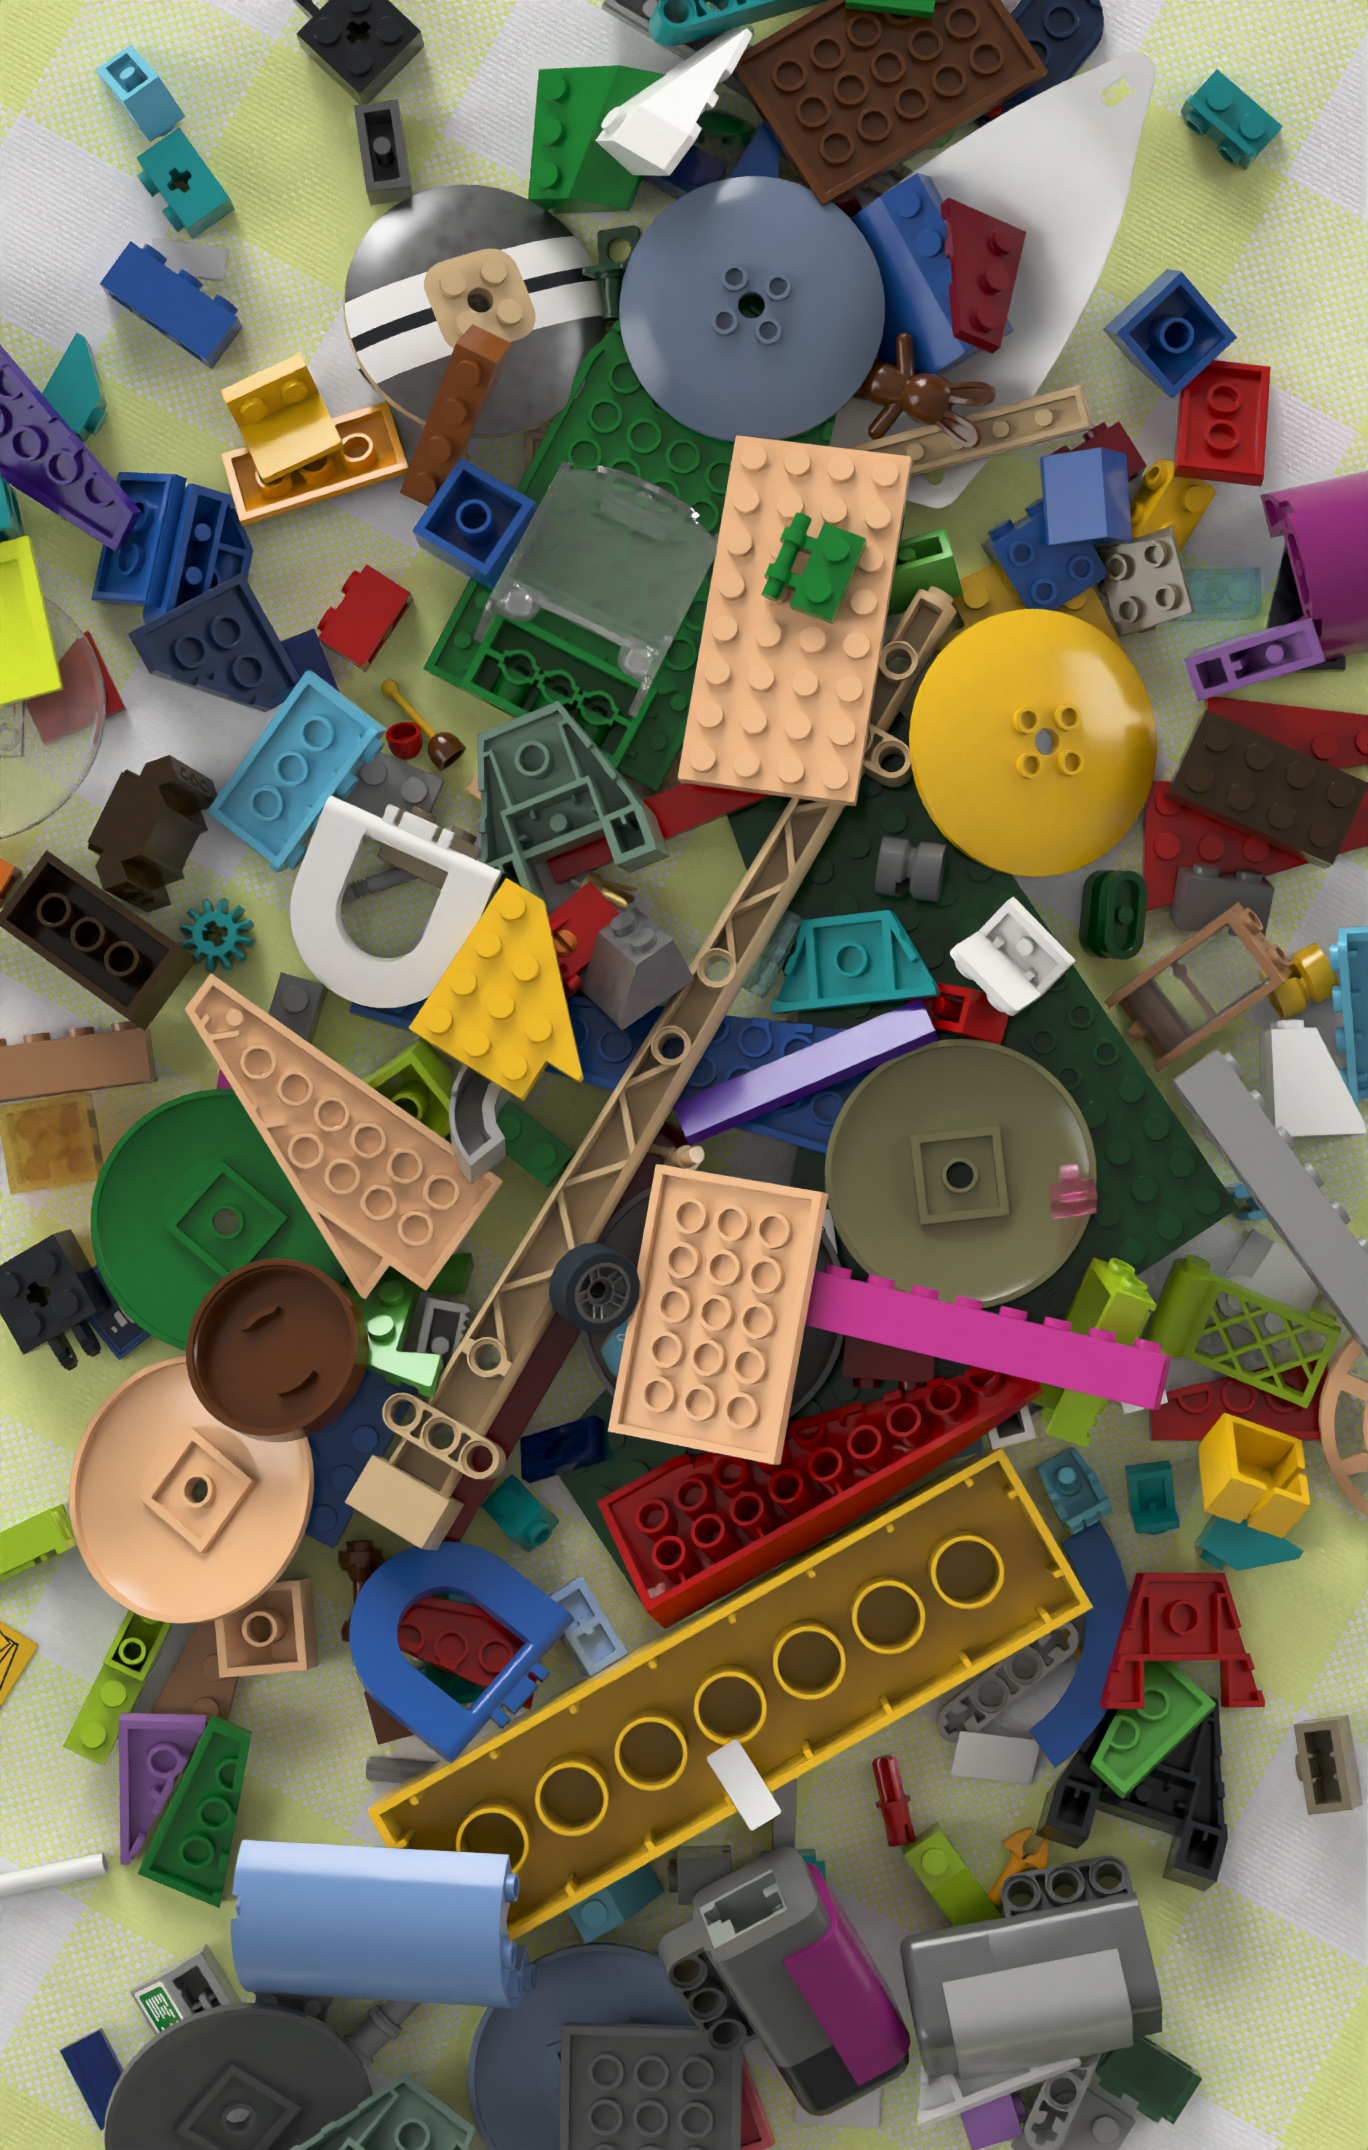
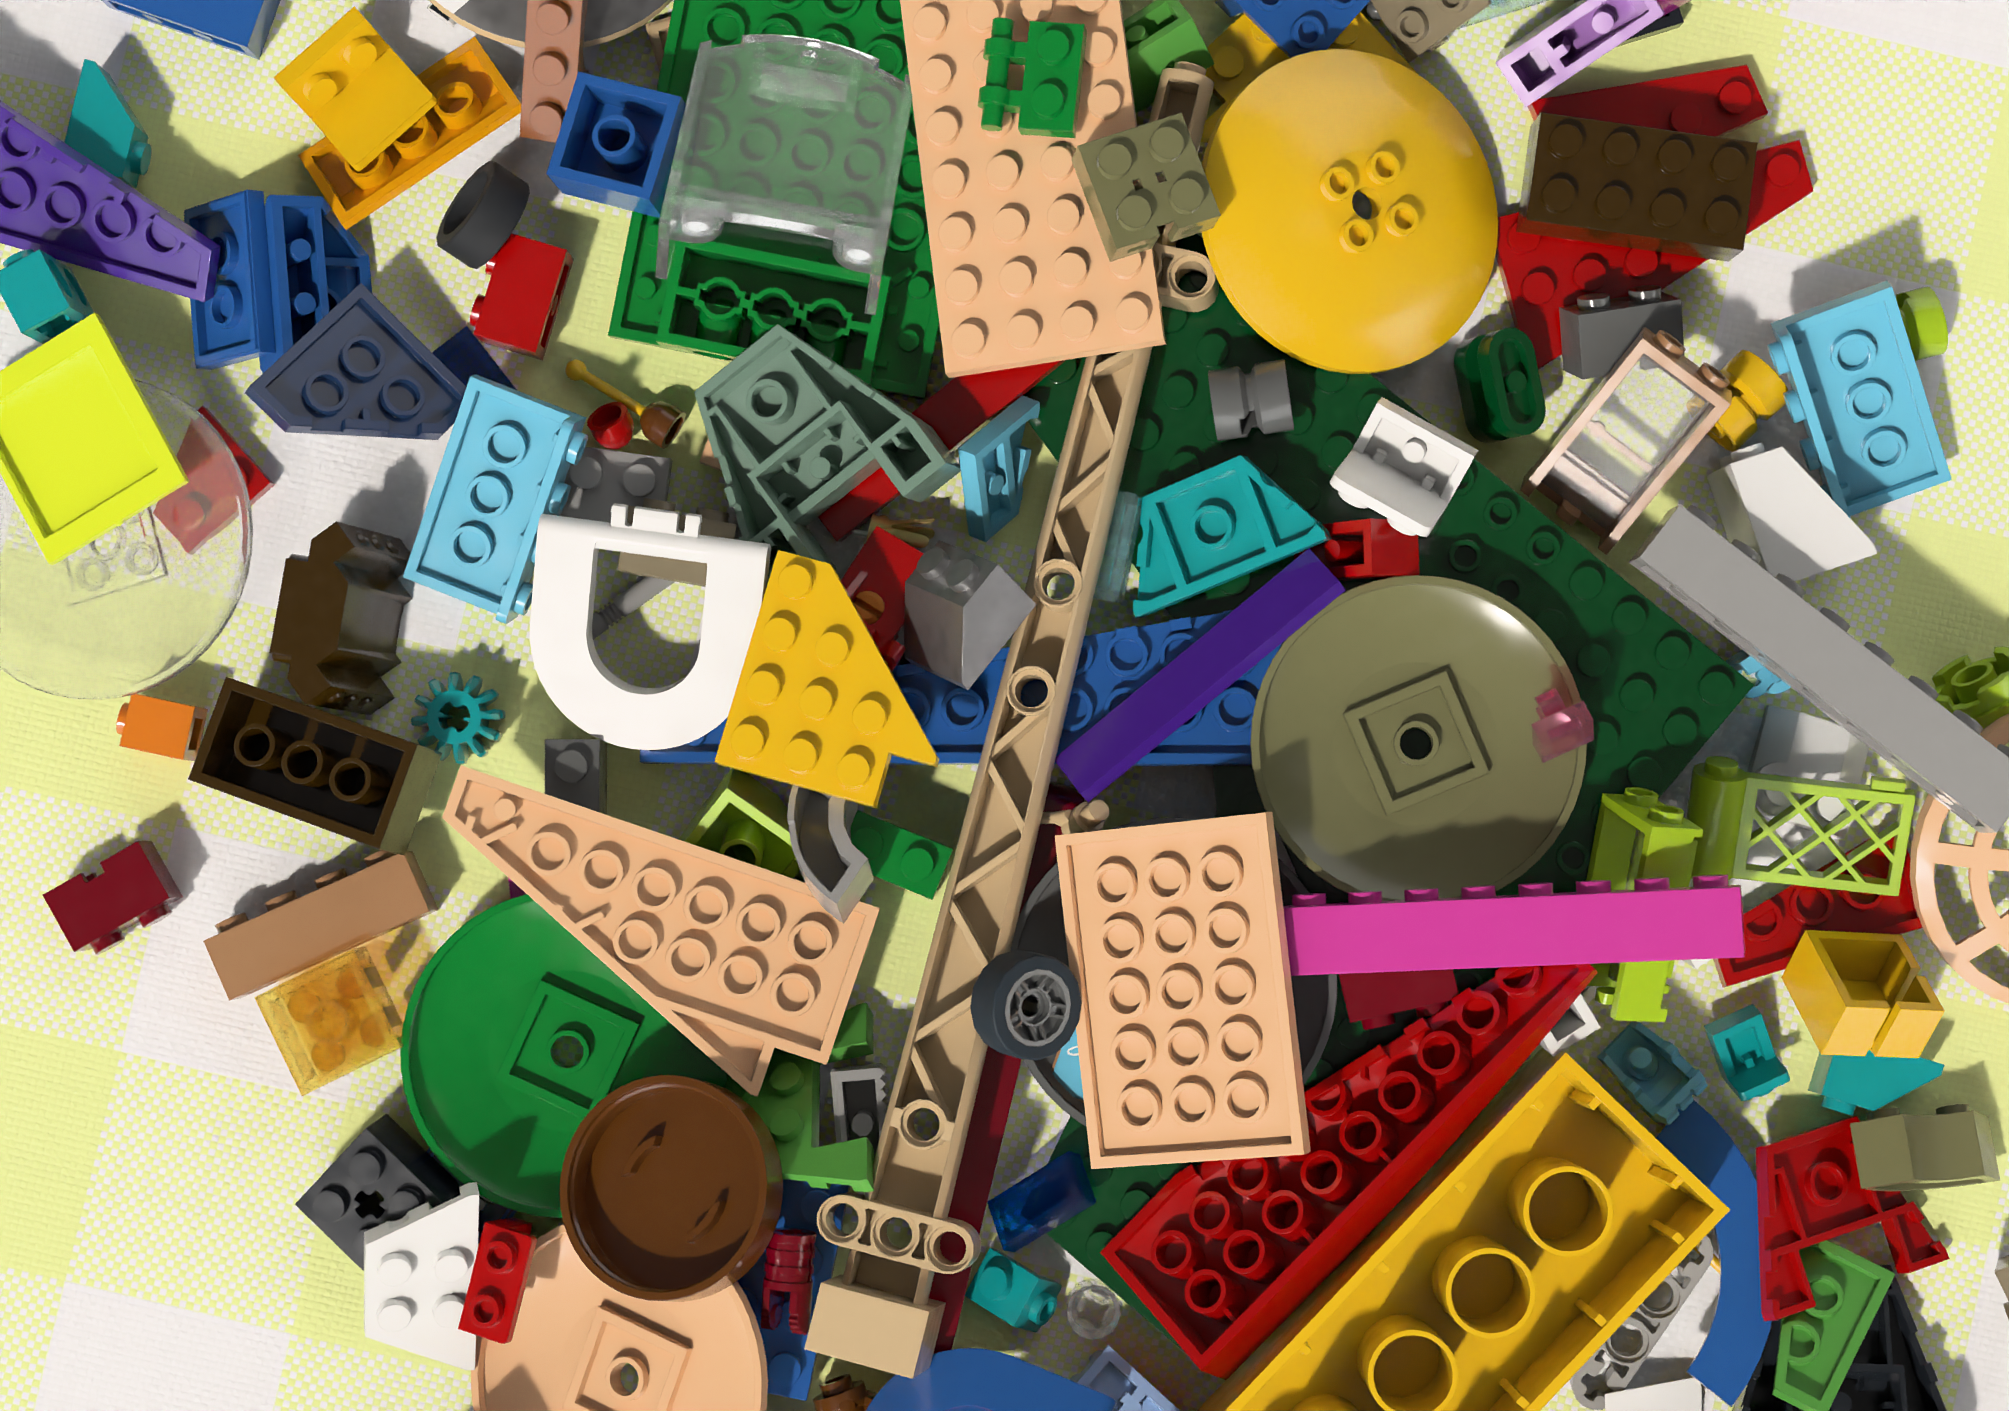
camera: 25 degrees left, 0 degrees up
(64, 1367) = (420, 1279): none -> white wing
(121, 1383) = (498, 1279): none -> red bracket
(348, 1439) = (790, 1270): none -> dark red hinge
(352, 546) = (483, 215): none -> black tyre
(578, 1538) = (1090, 1298): none -> clear wheel
(695, 863) = (995, 469): none -> medium azure wing
(857, 698) = (1131, 213): none -> olive piece
(1269, 1615) = (1924, 1150): none -> olive brick

